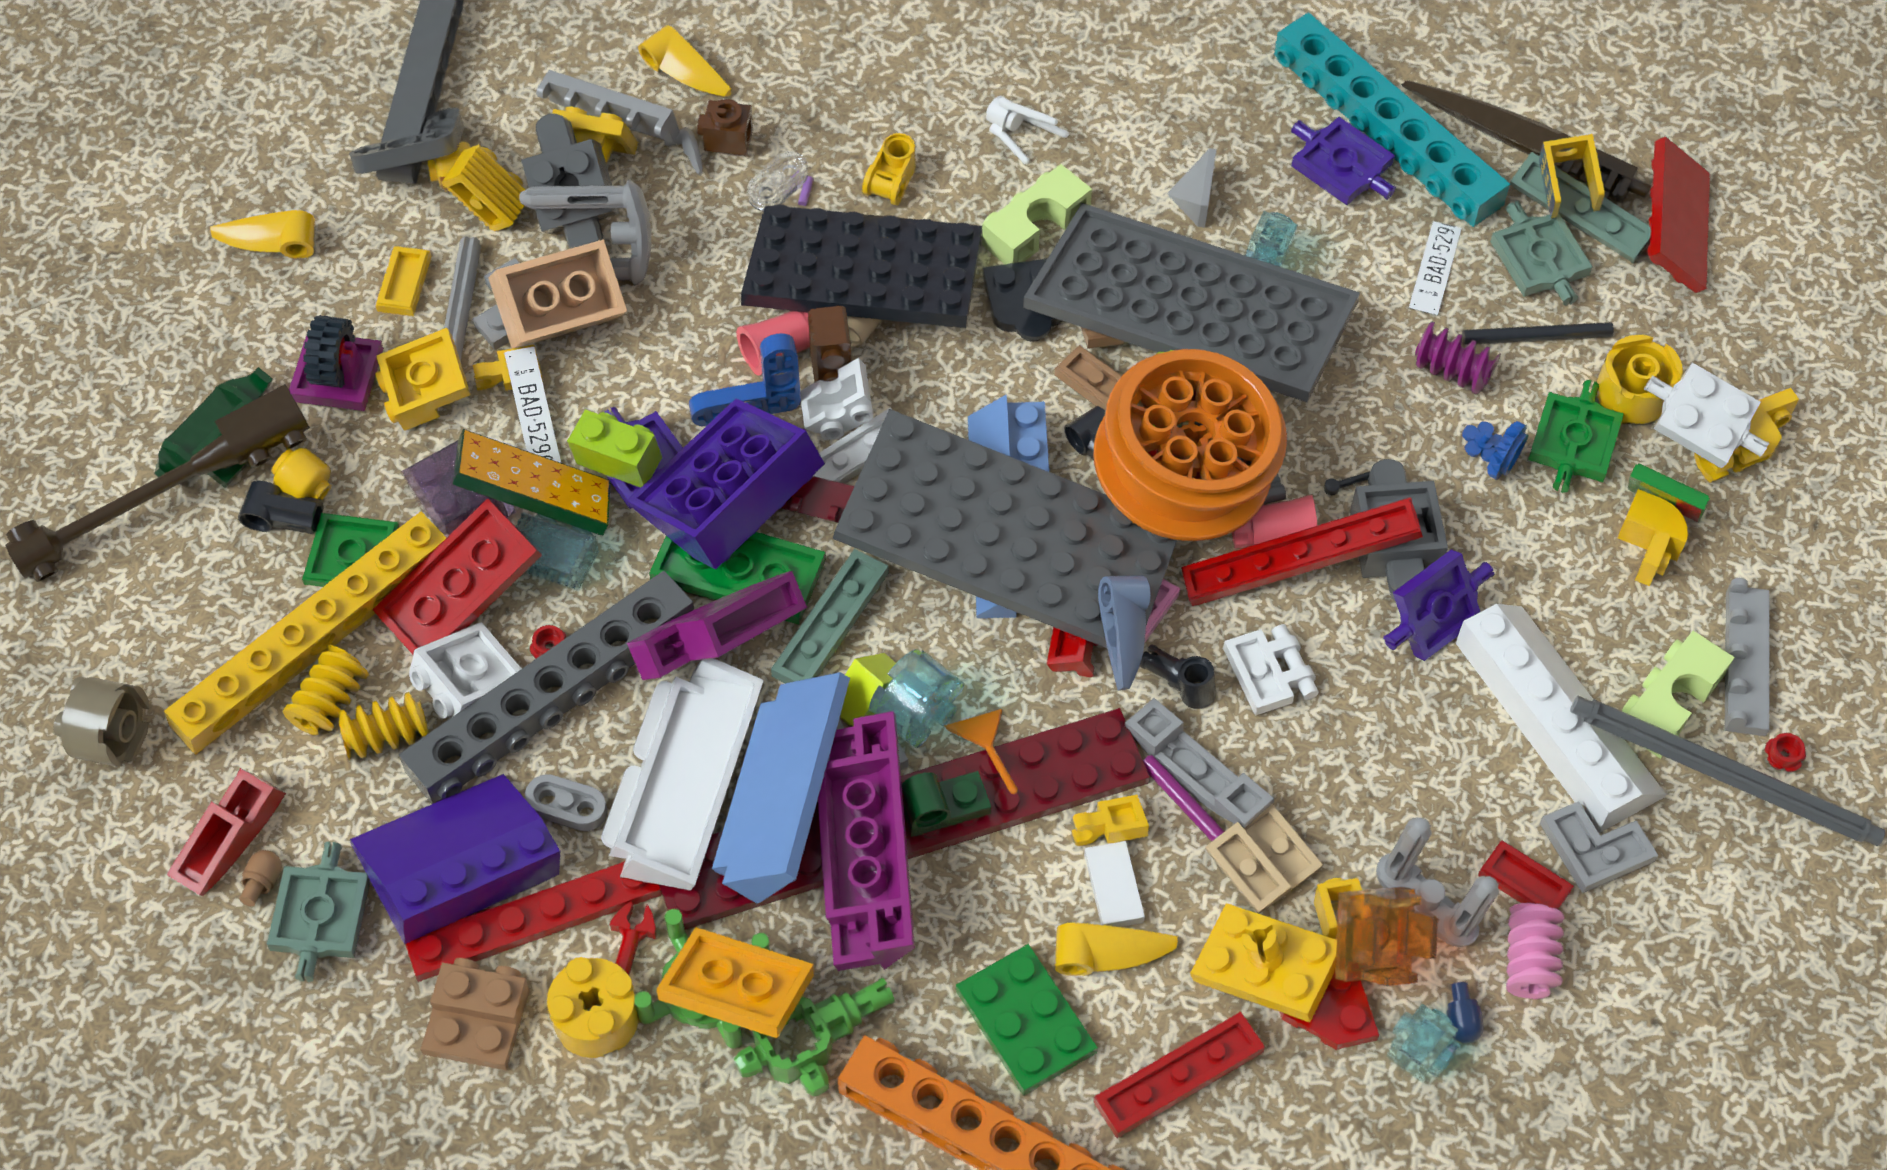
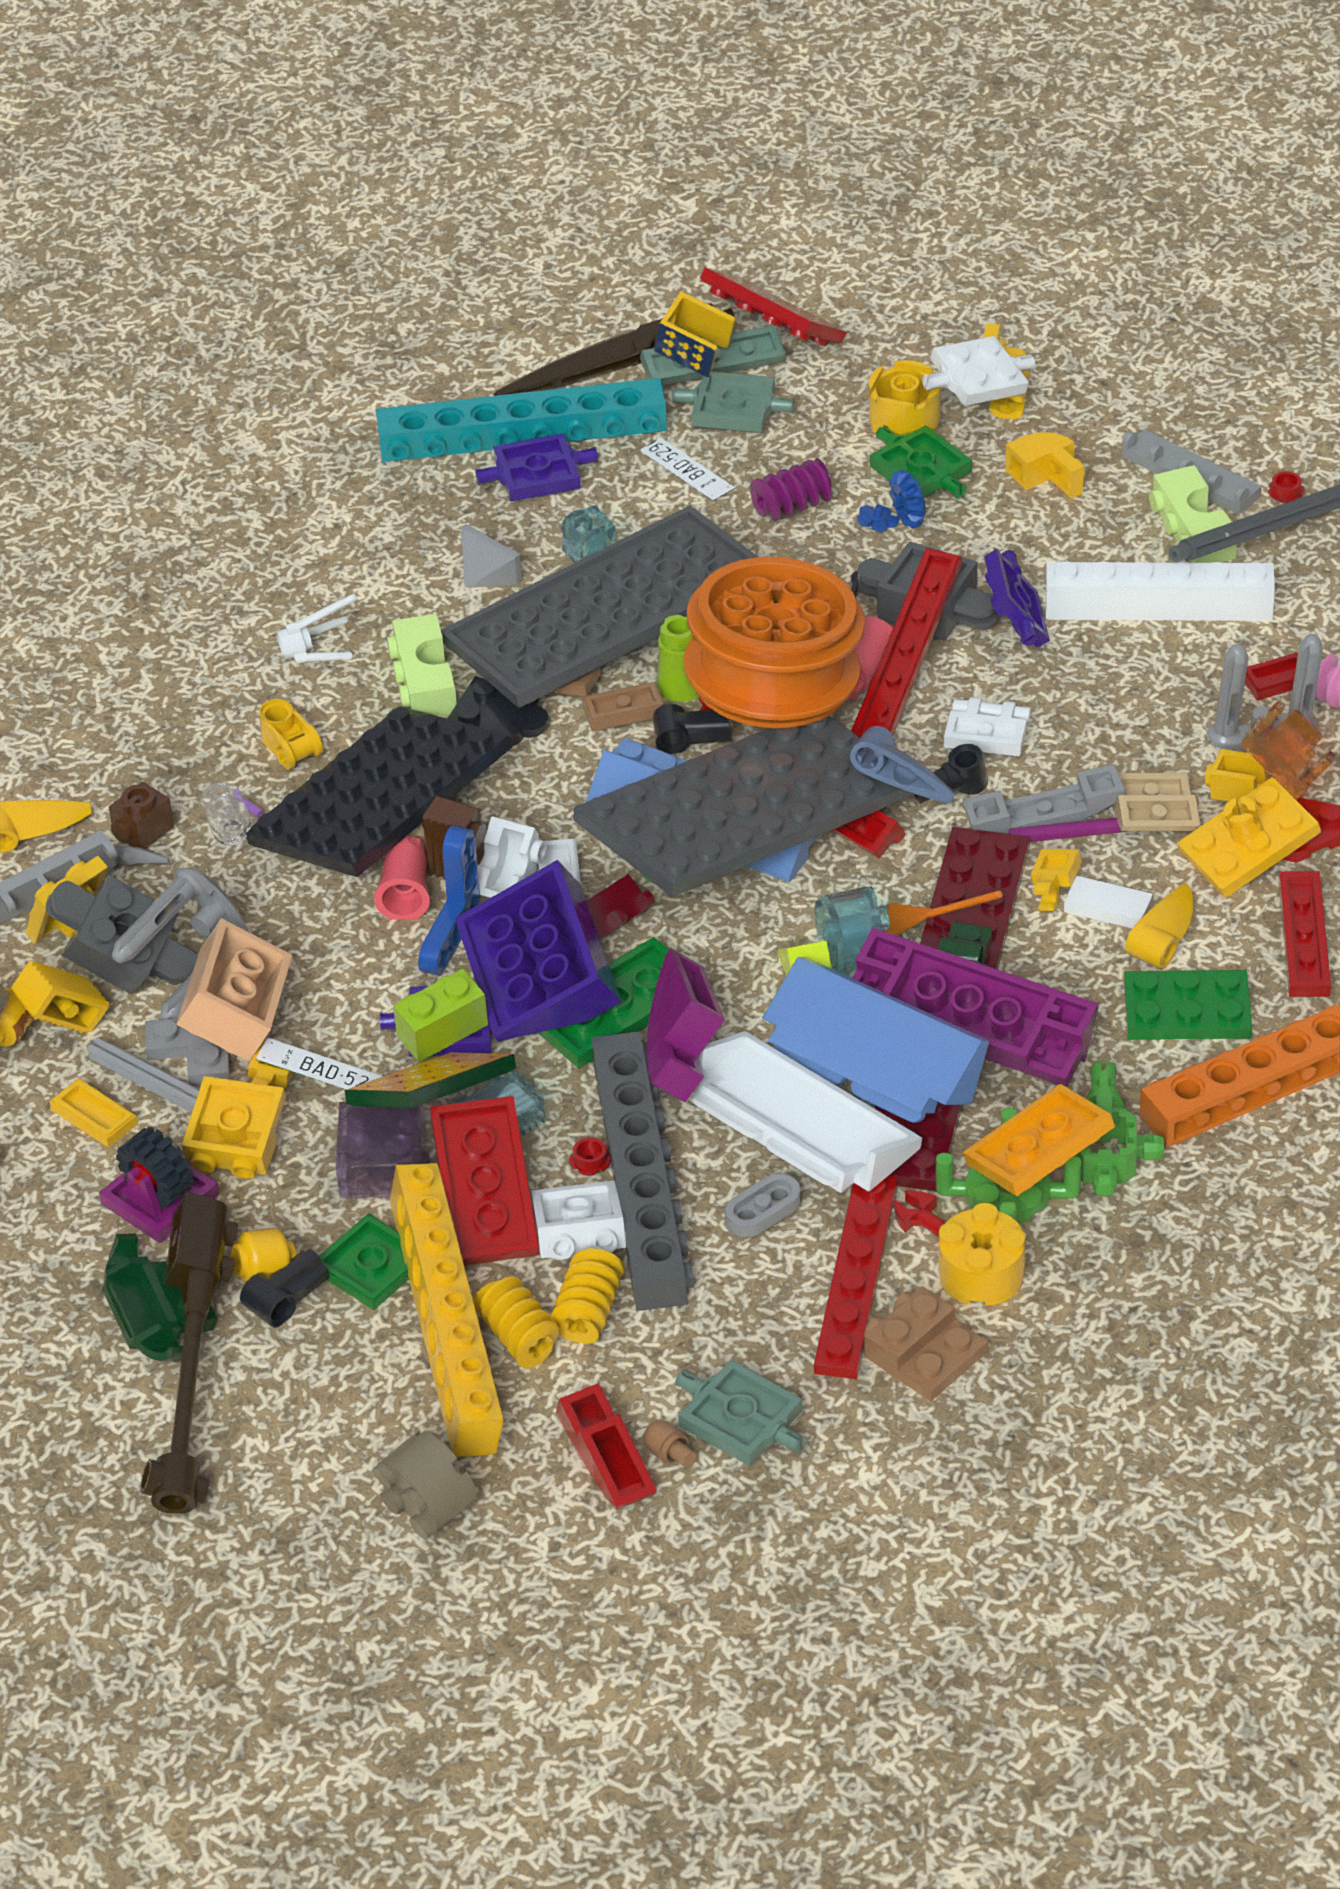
camera: 55 degrees left, 15 degrees down
(457, 857) = (761, 1289): dark purple slope -> none
(831, 619) = (725, 967): sand green plate -> none
(1538, 333) = (809, 434): black bar -> none
(1594, 857) = (1286, 627): light grey plate -> none
(1686, 499) = (1034, 419): green tile -> none

